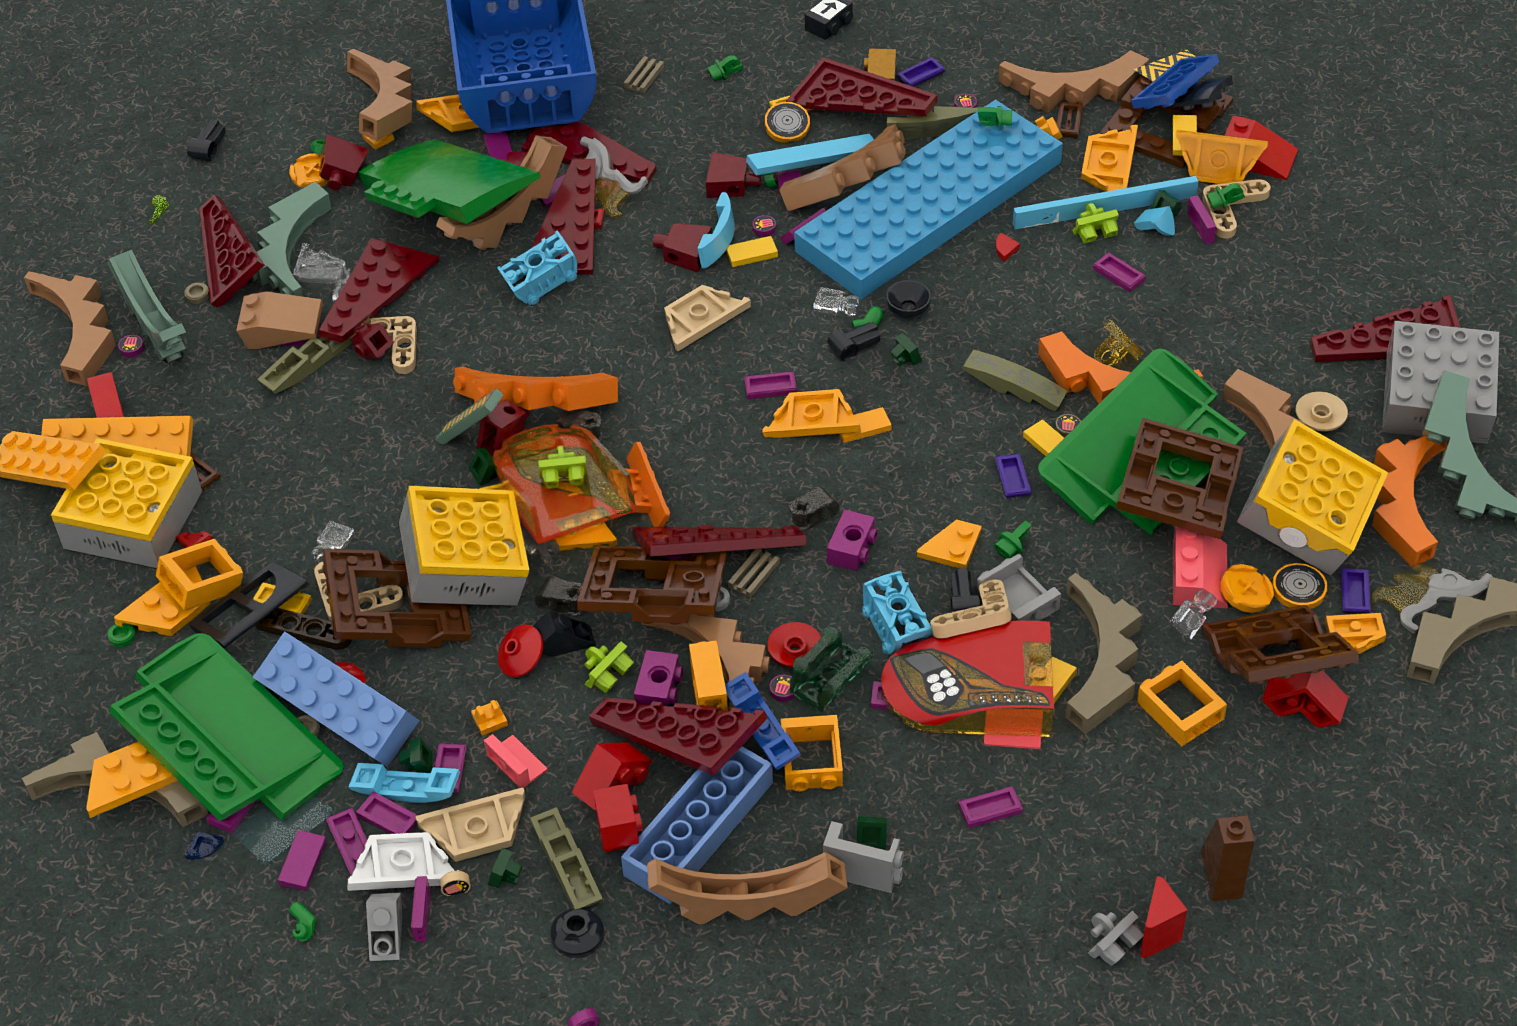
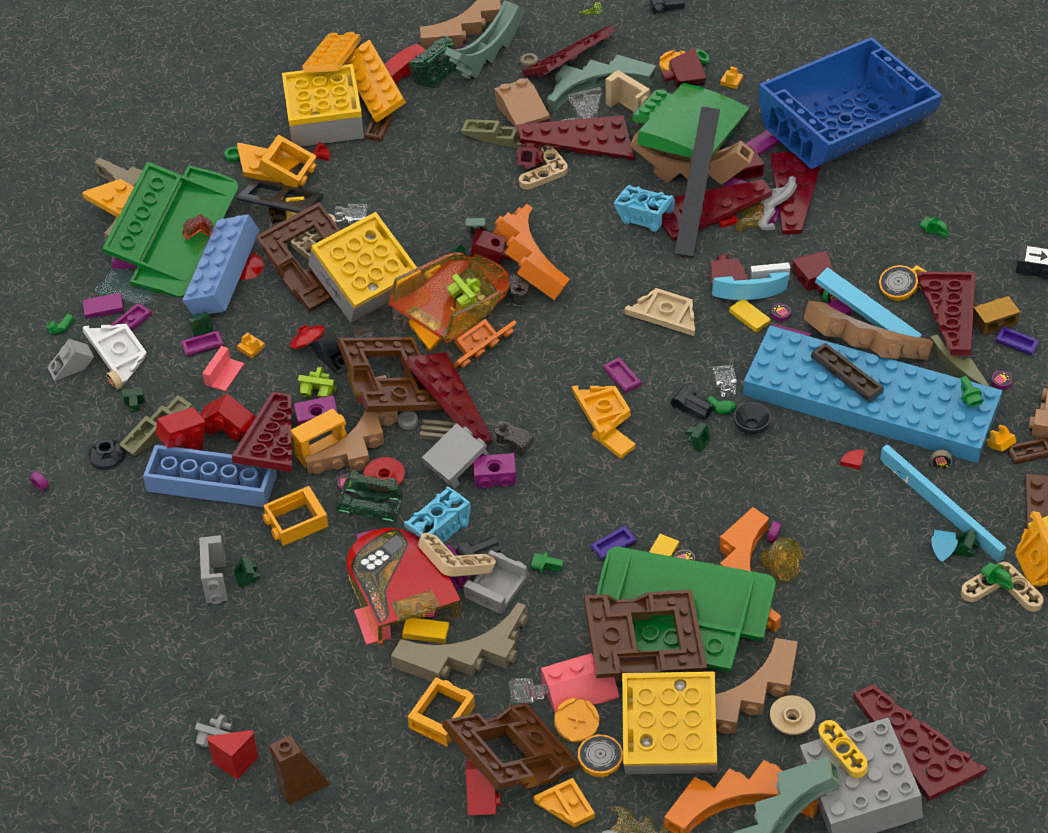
camera: 65 degrees right, 0 degrees up
(135, 373) = (432, 69): none -> clear green piece
(202, 845) = (96, 258): clear blue tile -> none
(253, 698) = (197, 224): none -> clear red bracket
(348, 218) = (625, 91): none -> tan panel
(387, 815) = (153, 330): magenta tile -> none
(393, 89) = (767, 65): medium nougat arch -> none
(404, 786) = (177, 323): medium azure slope -> none
(420, 909) = (88, 372): magenta tile -> none
(475, 825) = (163, 373): tan wing -> none
(558, 199) = (697, 181): none -> black tile
(639, 78) = (896, 186): dark tan tile -> none
(706, 208) = (763, 271): none -> white tile
(748, 895) = (174, 542): medium nougat arch -> none
(770, 735) = (301, 474): blue slope -> none
(814, 564) = (454, 454): none -> light grey panel
(907, 194) = (847, 372): none -> dark brown tile
(952, 545) = (527, 531): light orange wing -> none
(990, 807) = (300, 632): magenta tile -> none
(1011, 377) = (707, 510): olive slope -> none
(1047, 182) = (941, 459): none -> tile
(1075, 336) = (774, 531): none -> magenta tile
(1093, 220) = (919, 510): lime hips -> none
(1109, 159) = (995, 489): light orange wing -> none
(1119, 272) = (872, 539): magenta tile -> none
(1201, 219) = (964, 571): magenta tile -> none
(1355, 591) = (614, 793): dark purple tile -> none
(1432, 359) = (843, 758): none -> yellow beam

